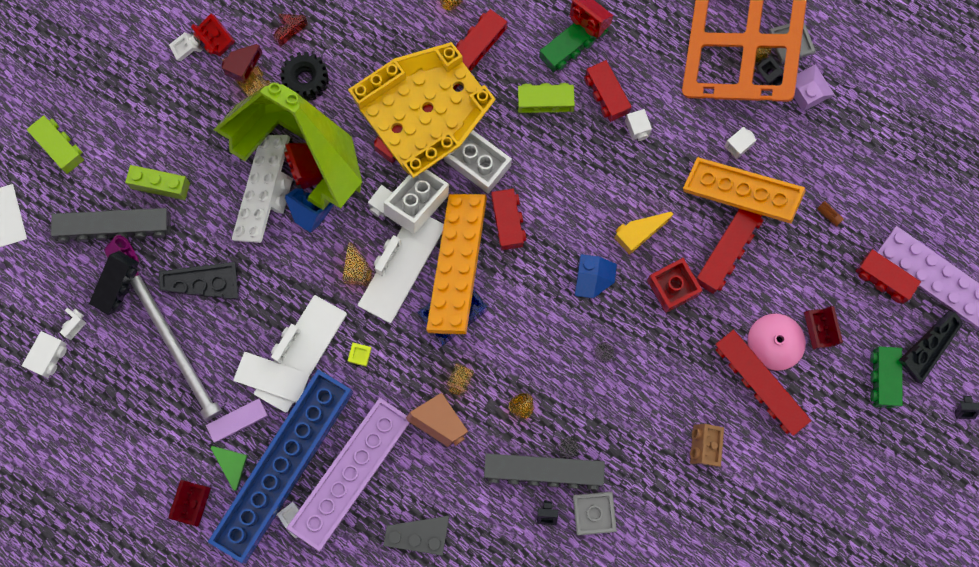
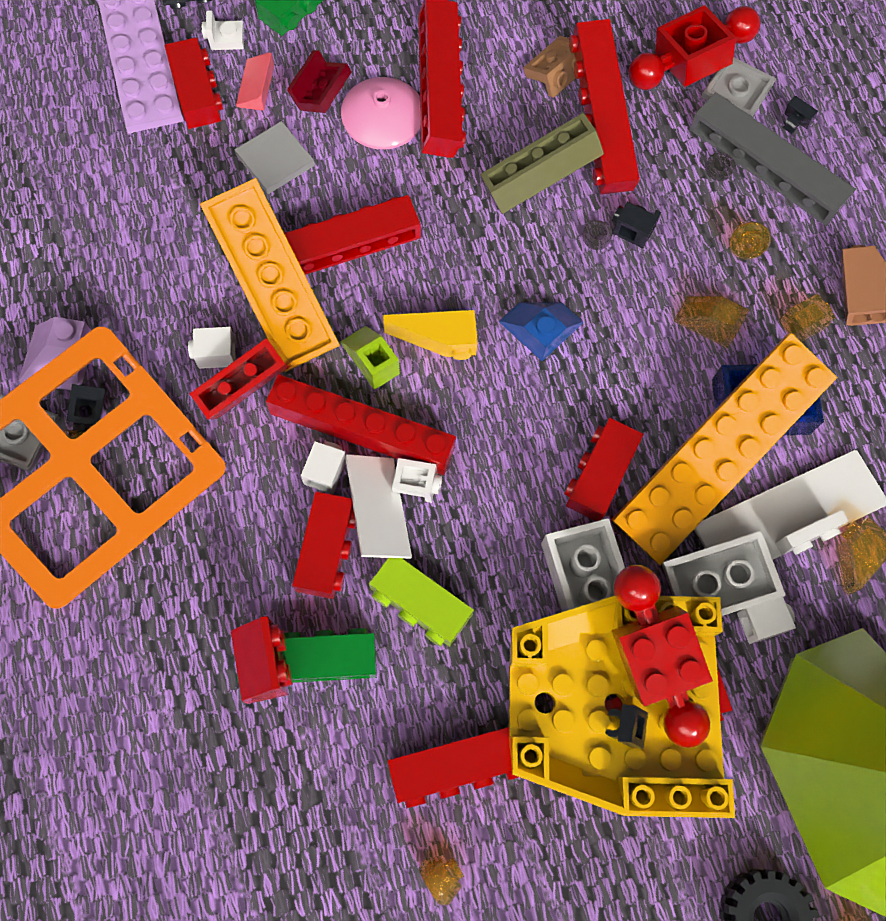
camera: 145 degrees left, 5 degrees down
(415, 95) = (632, 725): none -> black tile
(423, 127) = (662, 656): none -> red brick
(510, 342) = (712, 317): none -> clear yellow slope
(589, 369) = (634, 223): none -> black brick
(590, 149) = (417, 479): none -> white bracket
(598, 122) = (377, 508): none -> white piece
(637, 511) = (694, 46): none -> red brick
(638, 156) = (359, 423): none -> red brick
(657, 425) = (604, 105): none -> red brick
(662, 358) = (543, 163): none -> olive brick
(663, 193) = (372, 356): none -> lime slope
(674, 285) = (453, 237): red brick -> none
(711, 132) = (240, 379): none -> red brick
(807, 269) = (274, 157): none -> light grey tile
(830, 214) = (186, 193): dark orange piece -> none
(858, 306) = (256, 82): none -> coral slope
(903, 322) = (223, 34): none -> white bracket

